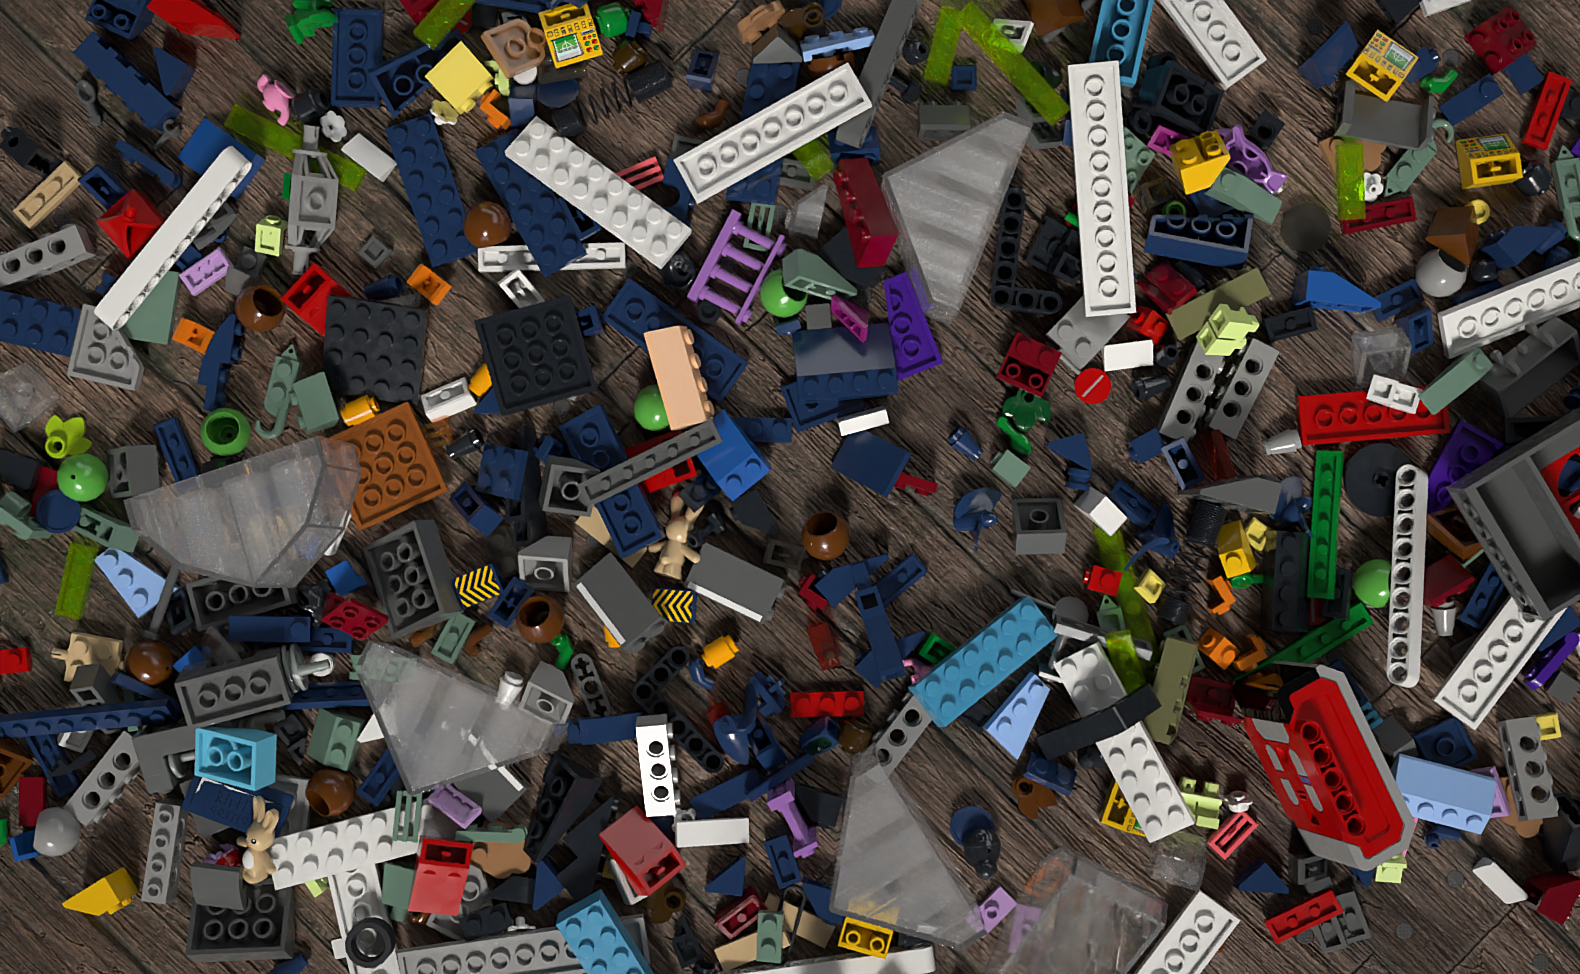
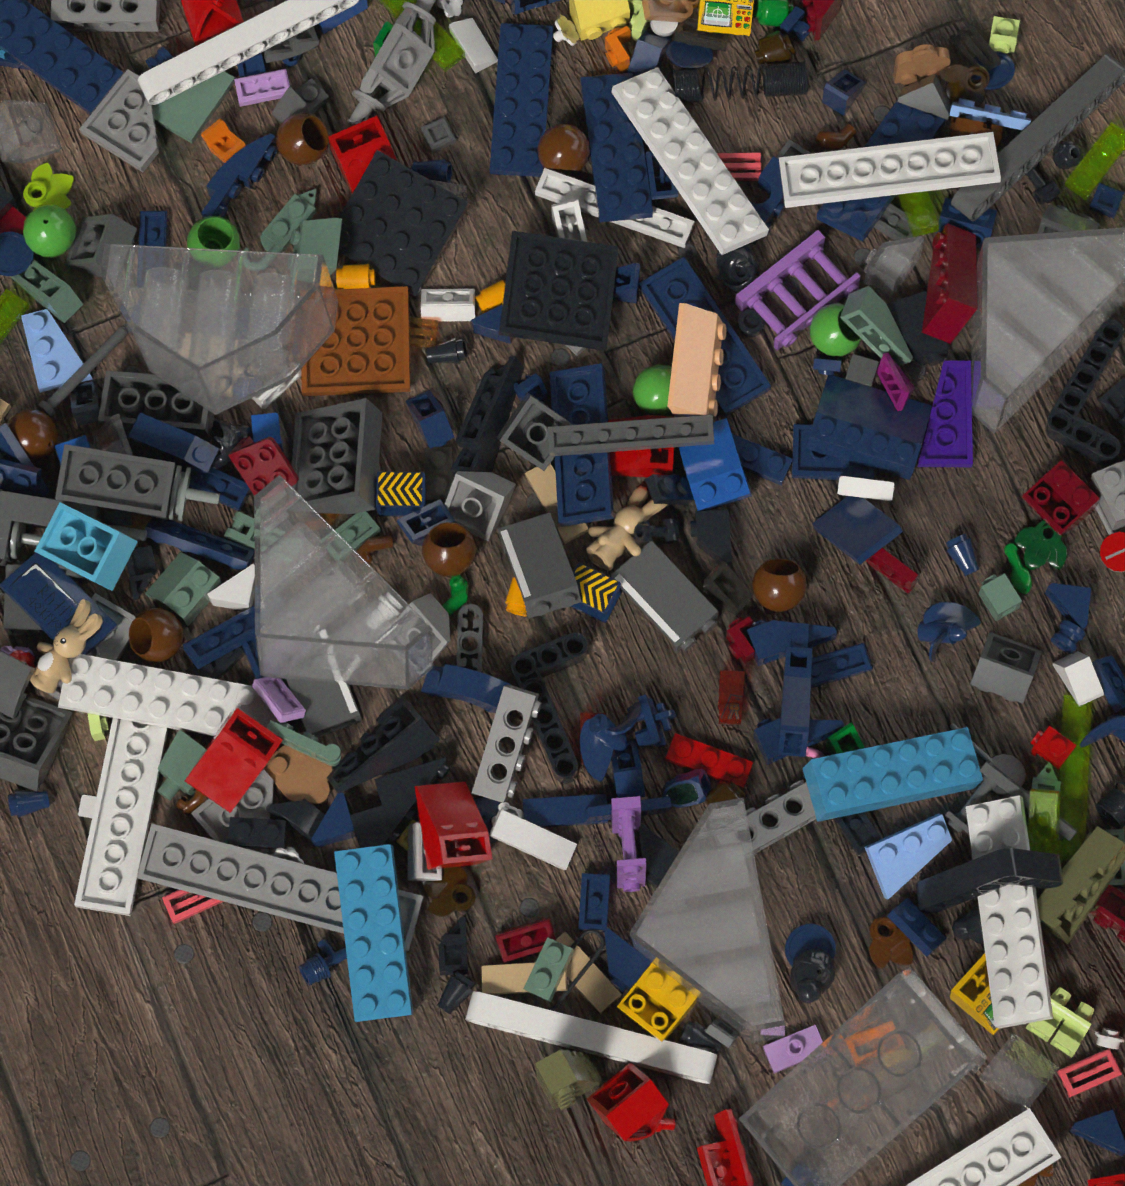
camera: 30 degrees right, 15 degrees down
(270, 235) = (341, 78): yellowish green bracket -> none
(319, 656) = (201, 512): white tile -> none
(358, 957) = (119, 784): black tyre -> none
(404, 838) = (236, 669): sand green tile -> none
(429, 284) = (479, 184): orange bracket -> none
(502, 471) = (473, 391): dark blue plate -> none
(697, 673) = (586, 676): dark blue arm -> none
(719, 651) = (619, 660): light orange brick -> none
(730, 879) = (530, 897): dark blue slope -> none
(756, 246) = (826, 279): sand green tile -> none
(1149, 586) = (1100, 775): light yellow tile -> none

